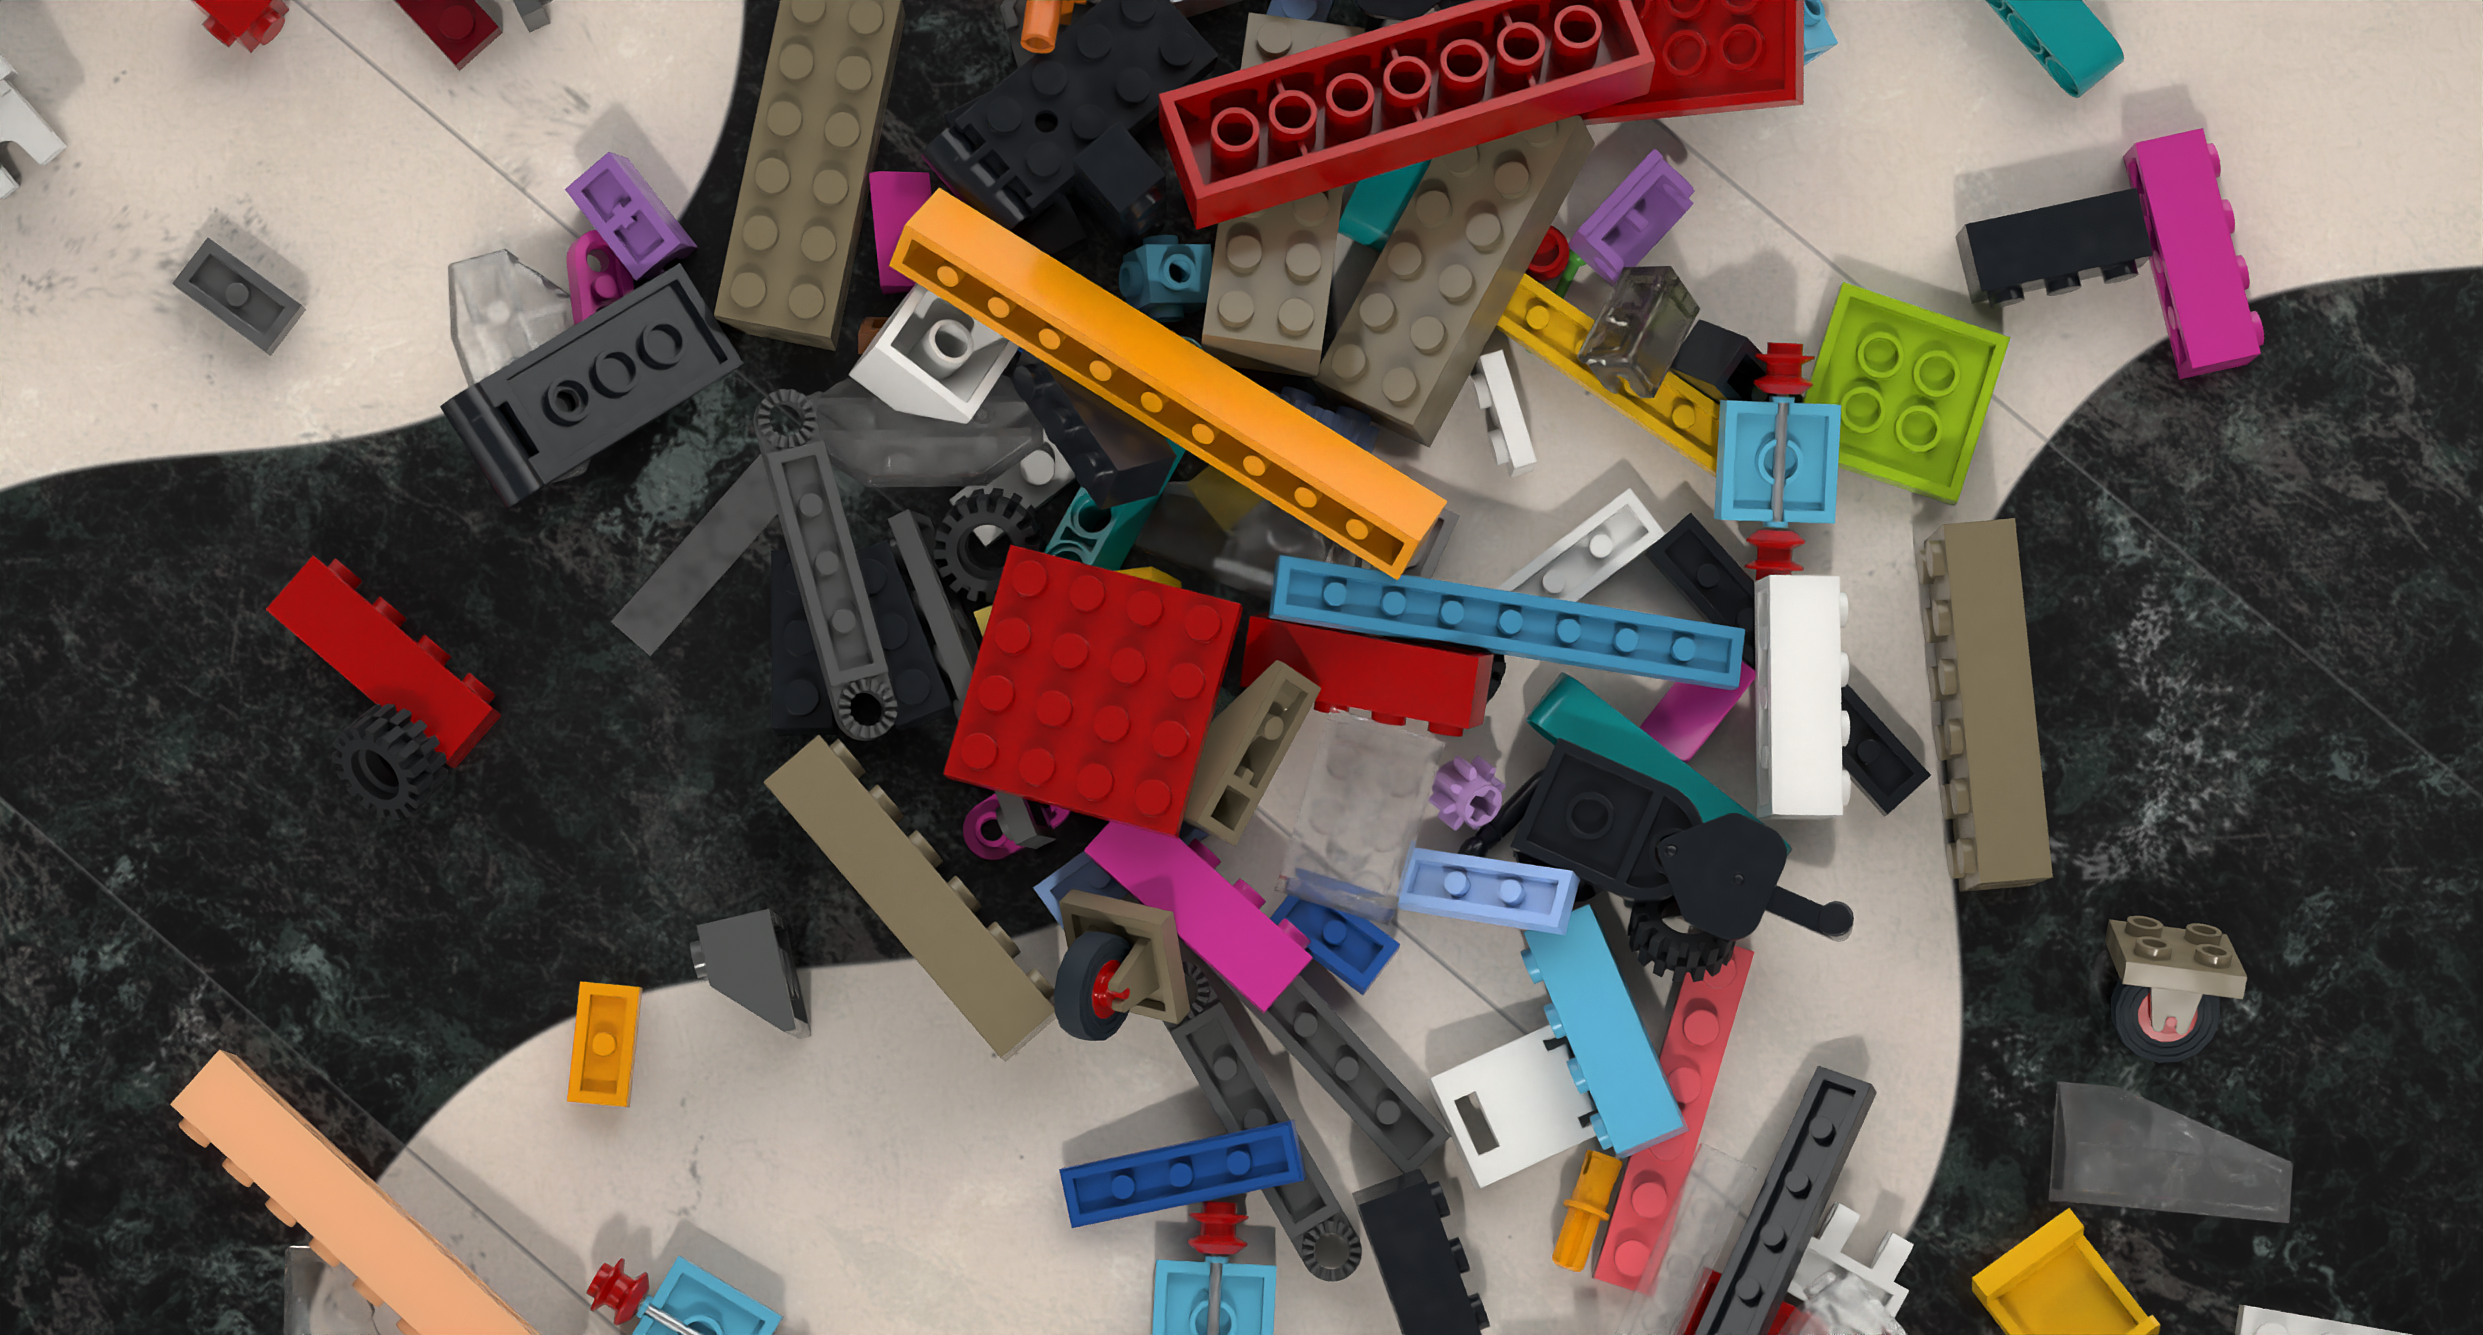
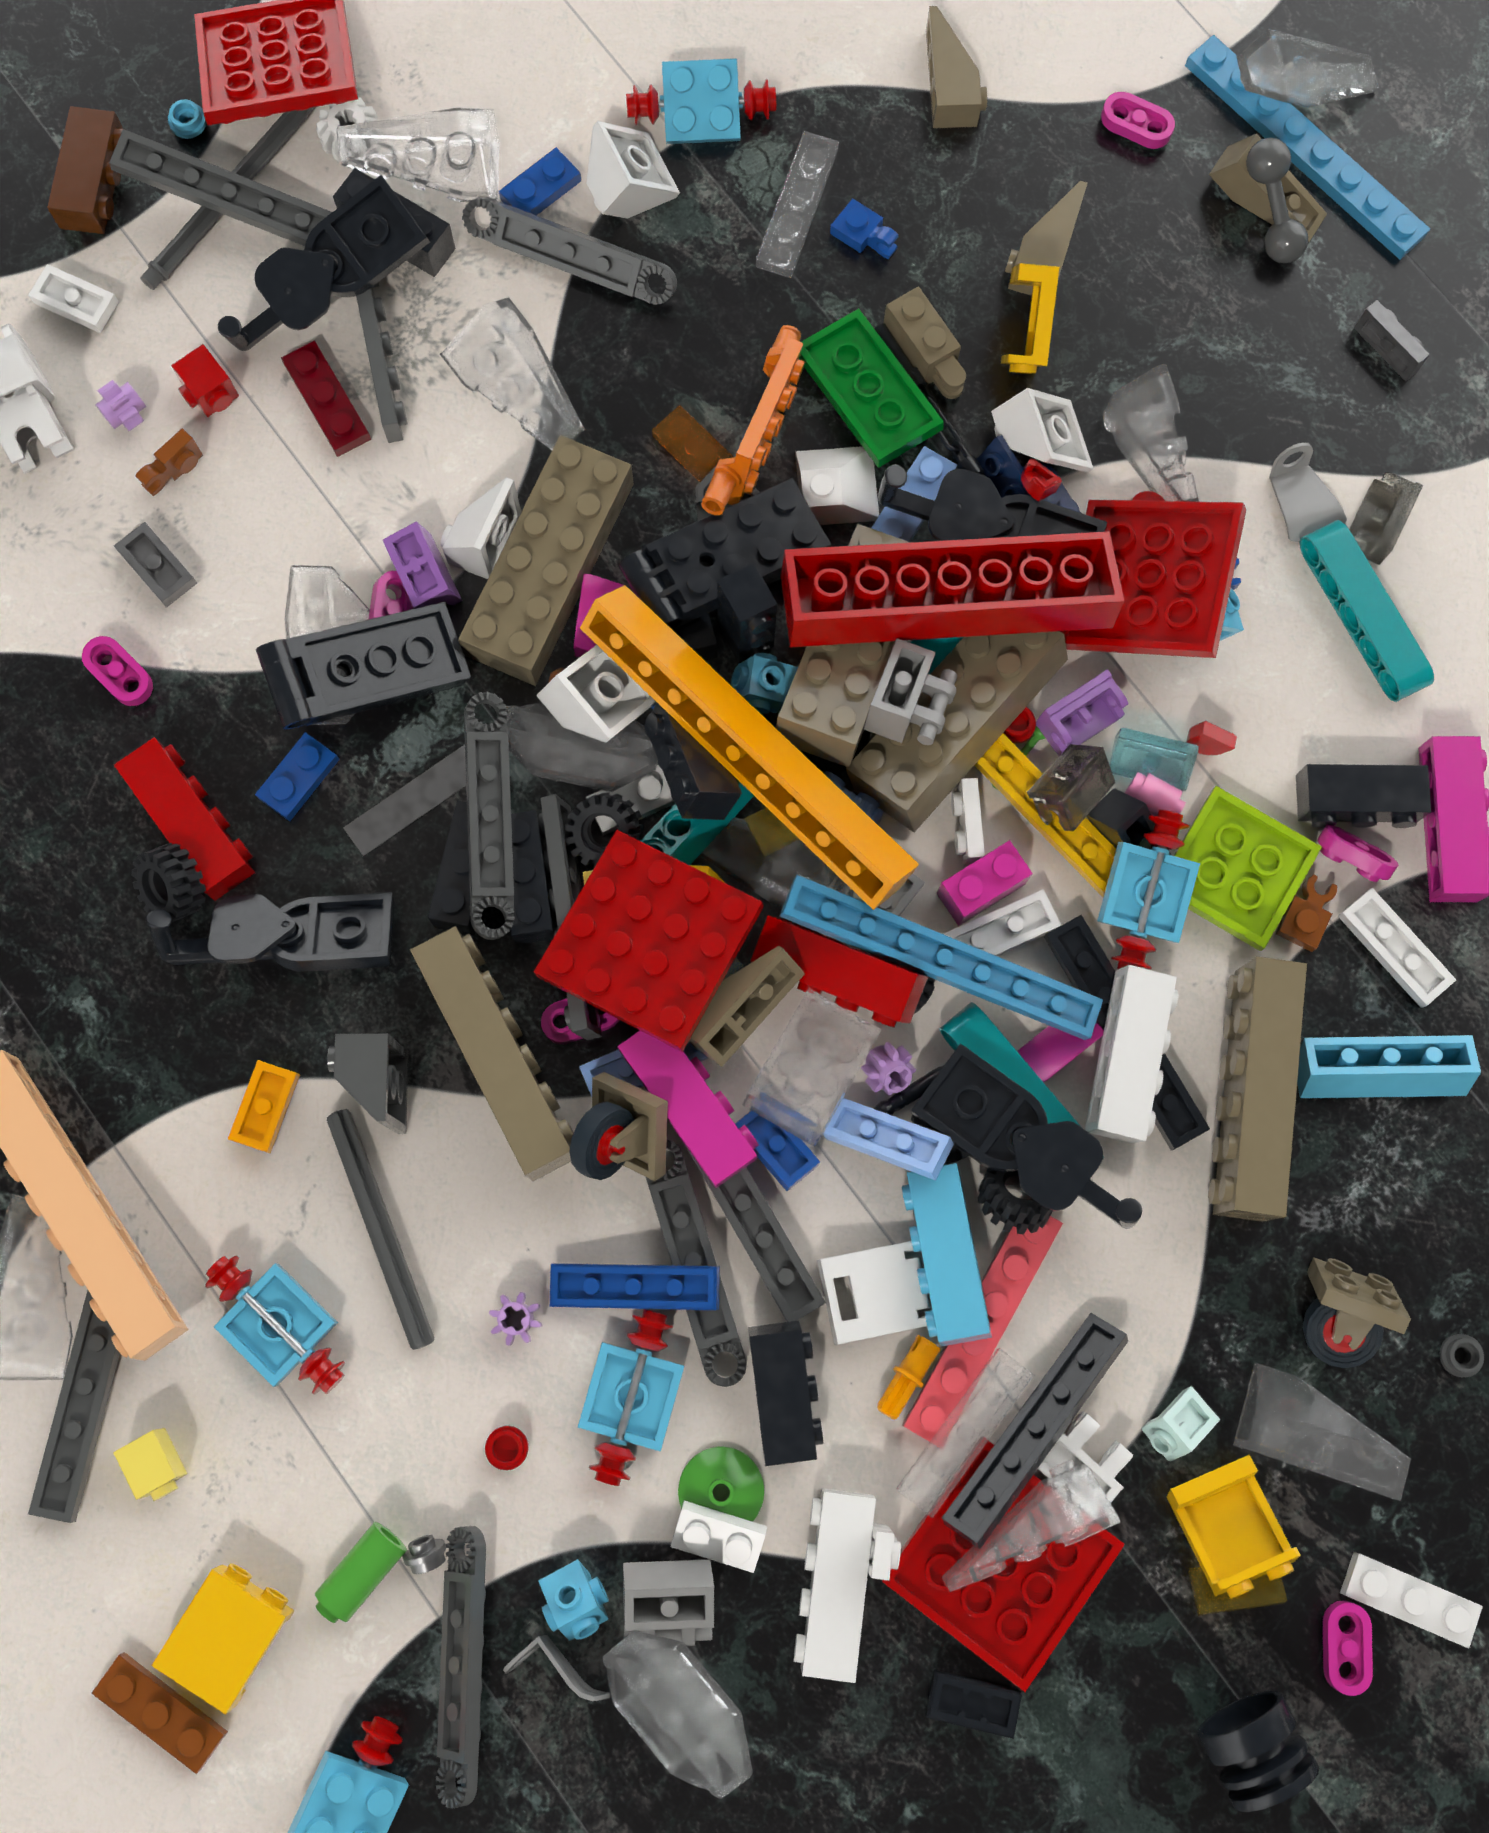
camera: 15 degrees right, 5 degrees down
(124, 68) = (120, 405): none -> lavender gear
(225, 131) = (172, 460): none -> dark orange plate
(228, 469) = (119, 672): none -> dark pink plate
(517, 800) = (298, 936): none -> black plate
(527, 563) = (297, 776): none -> blue plate
(705, 143) = (482, 530): none -> white slope
(809, 1175) = (380, 1229): none -> dark grey axle
(1011, 1255) = (503, 1315): none -> lavender gear
(1366, 259) = (900, 690): none -> light grey brick
(1543, 498) = (984, 883): none -> dark pink brick
(1746, 261) = (1153, 754): none -> clear light blue slope
(1760, 316) = (1155, 793): none -> bright pink brick
(1822, 215) = (1211, 739): none -> red tile
(1971, 1189) = (1181, 1425): none -> light aqua bracket
(2007, 444) = (1304, 918): none -> dark orange plate
(2066, 334) = (1370, 861): none -> dark pink plate
(2143, 458) = (1397, 948): none -> white plate
(2157, 633) = (1387, 1066): none -> medium azure brick
(2353, 1002) = (1473, 1351): none -> dark grey plate

